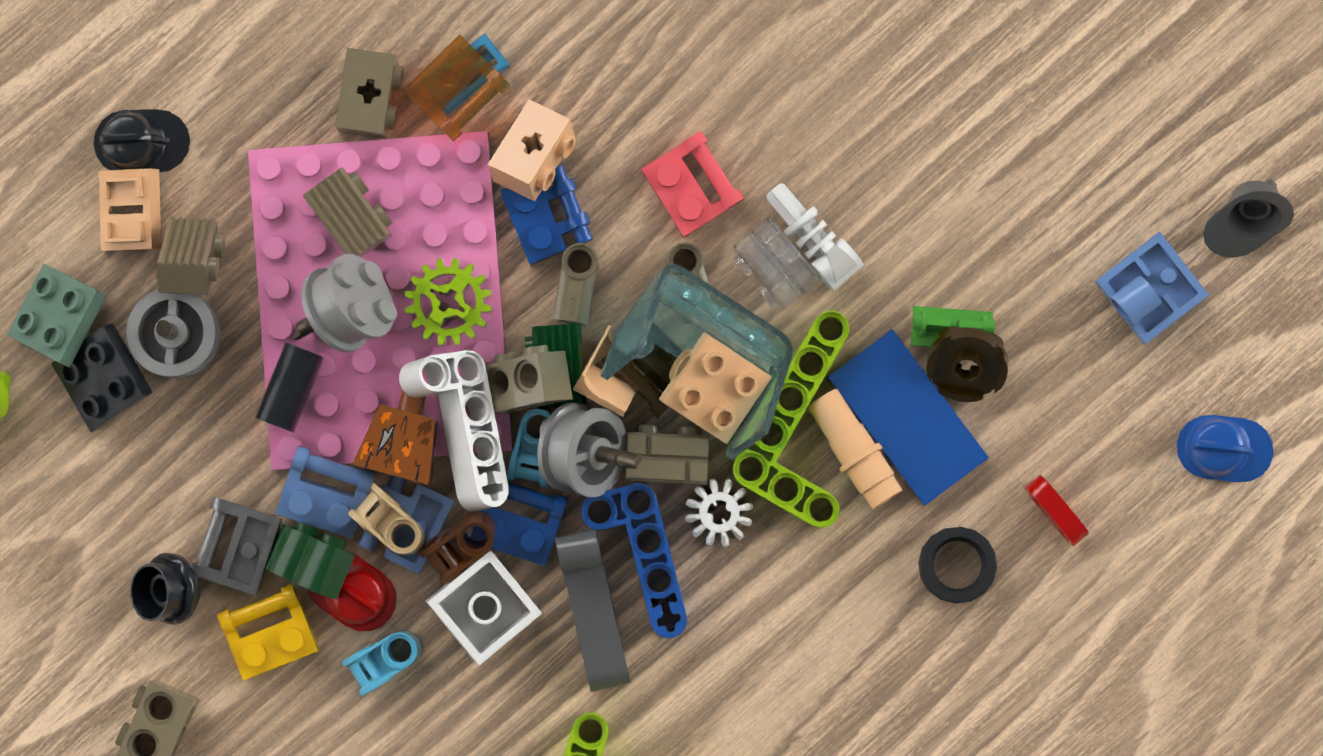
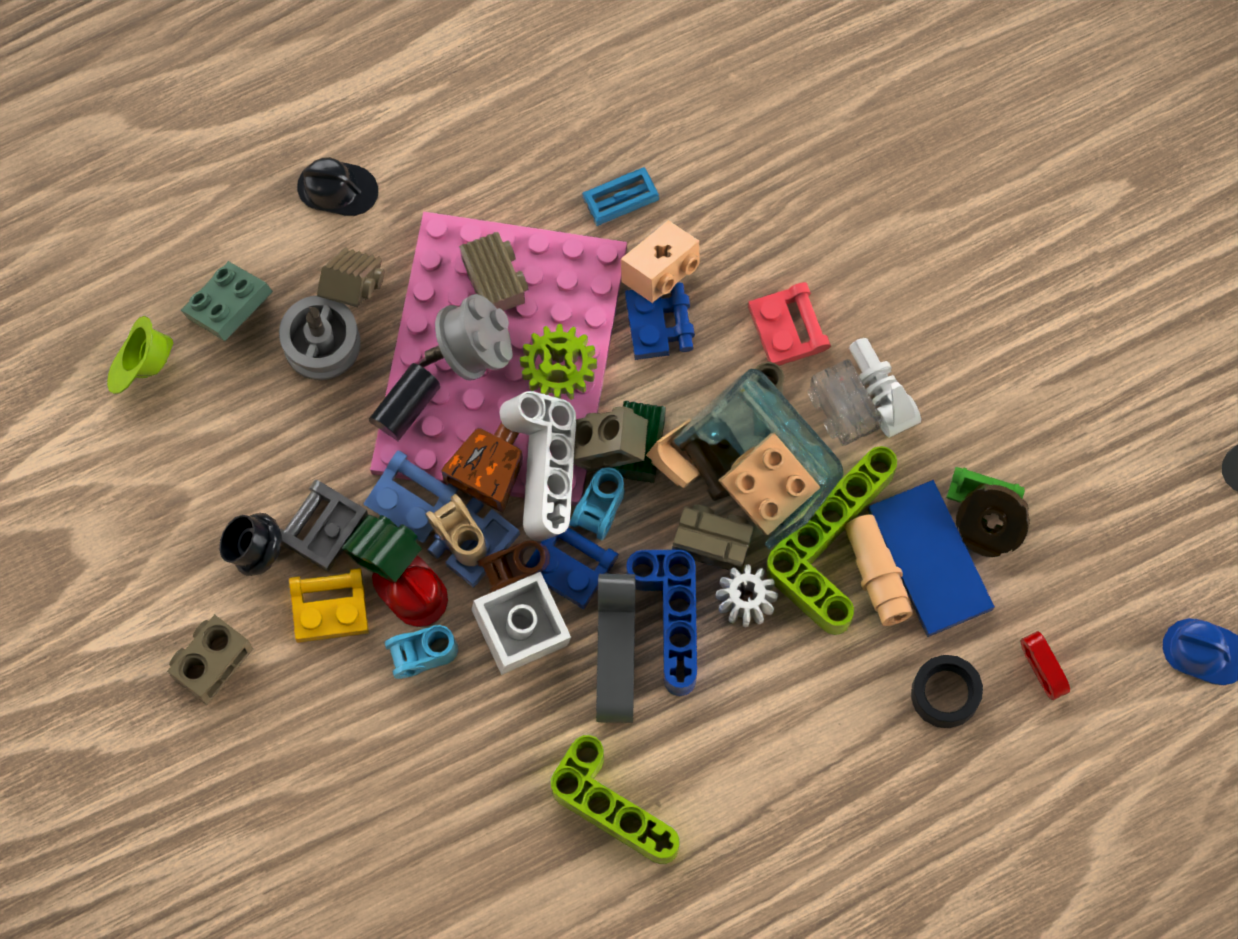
camera: 15 degrees right, 15 degrees down
(103, 378) = (249, 359): black plate -> none
(133, 230) = (316, 219): light nougat piece -> none
(360, 71) = (524, 200): dark tan brick -> none
(447, 79) = (606, 191): clear orange plate -> none
(574, 288) = (670, 380): dark tan piece -> none
(583, 449) = (642, 509): light grey wheel -> none
(1151, 288) = (1167, 499): medium blue plate -> none

